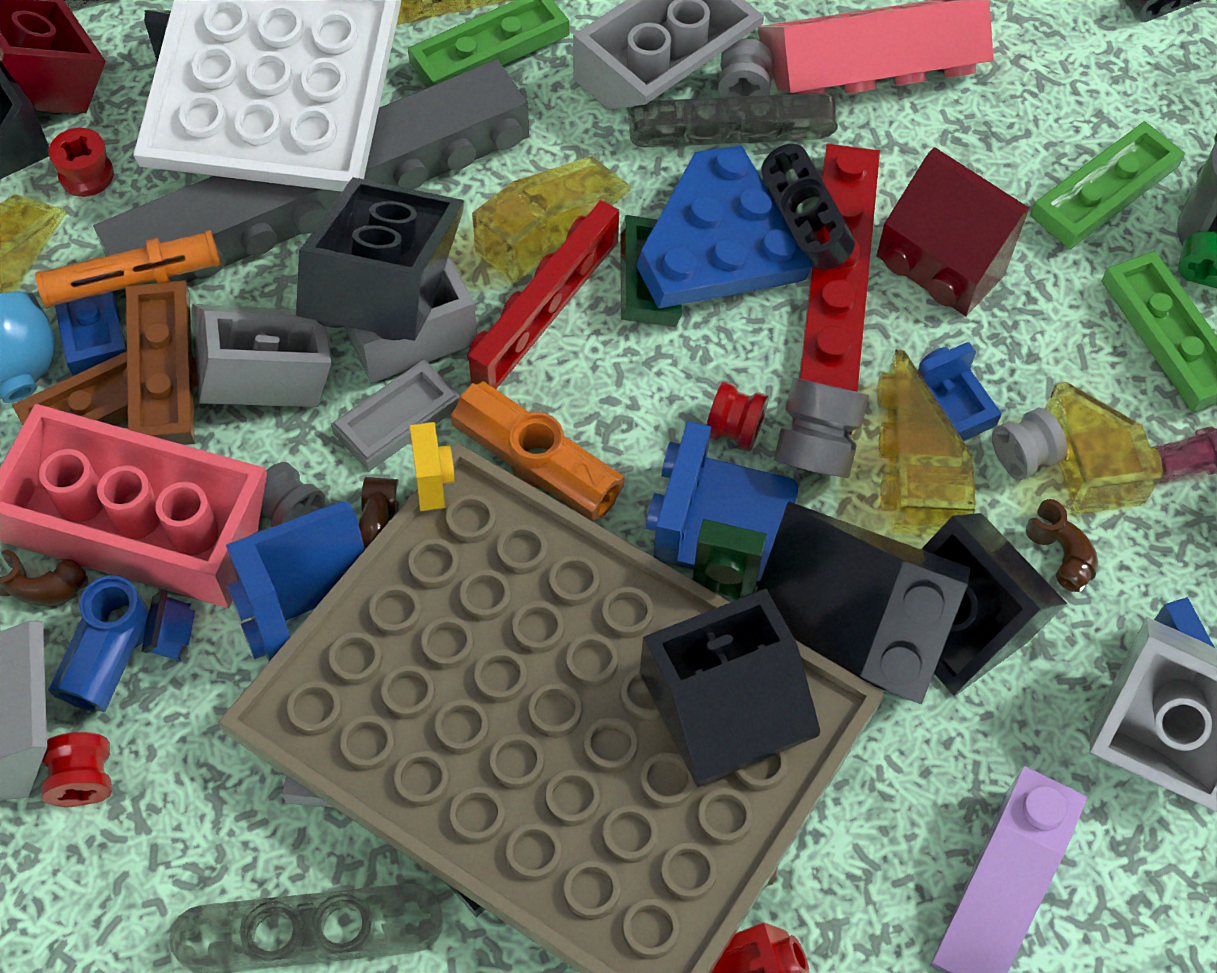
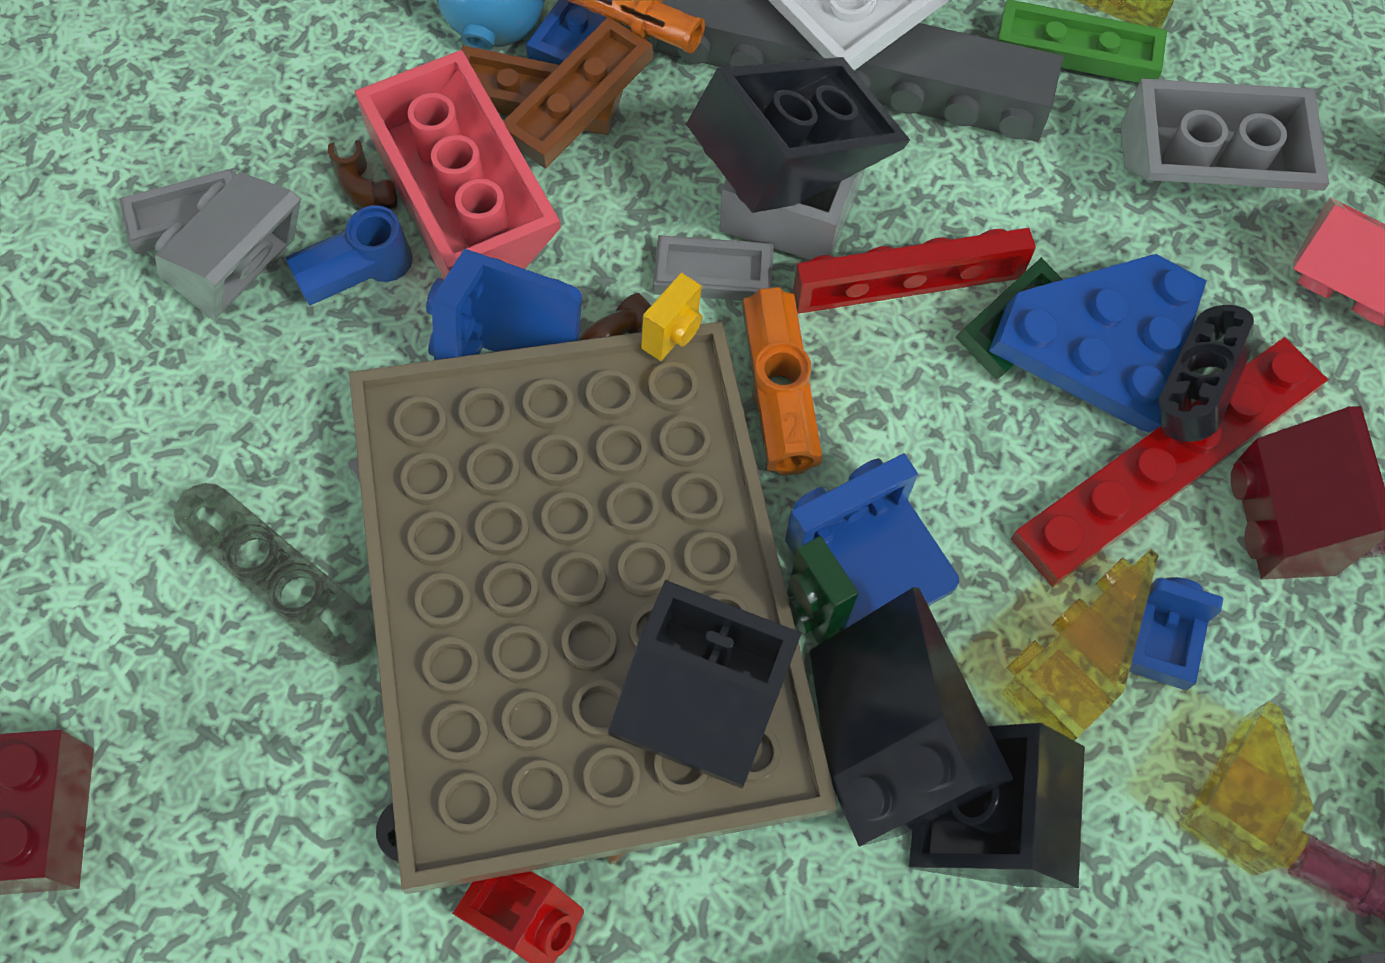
camera: 45 degrees right, 5 degrees up
(76, 770) = (248, 326): red wheel -> none
(167, 626) = (405, 283): blue piece -> none
(259, 356) = (645, 139): light grey slope -> none
(287, 496) = (570, 258): dark grey wheel -> none
(537, 212) = (970, 197): clear yellow slope -> none
(732, 120) = (1222, 255): clear smoke beam -> none
(737, 415) = (964, 488): red wheel -> none
(745, 69) = (1273, 223): light grey wheel -> none
(821, 428) = (1017, 555): flat silver wheel -> none
(1029, 443) = (1196, 730): light grey wheel -> none
(1079, 557) = (1143, 859): reddish brown arm -> none

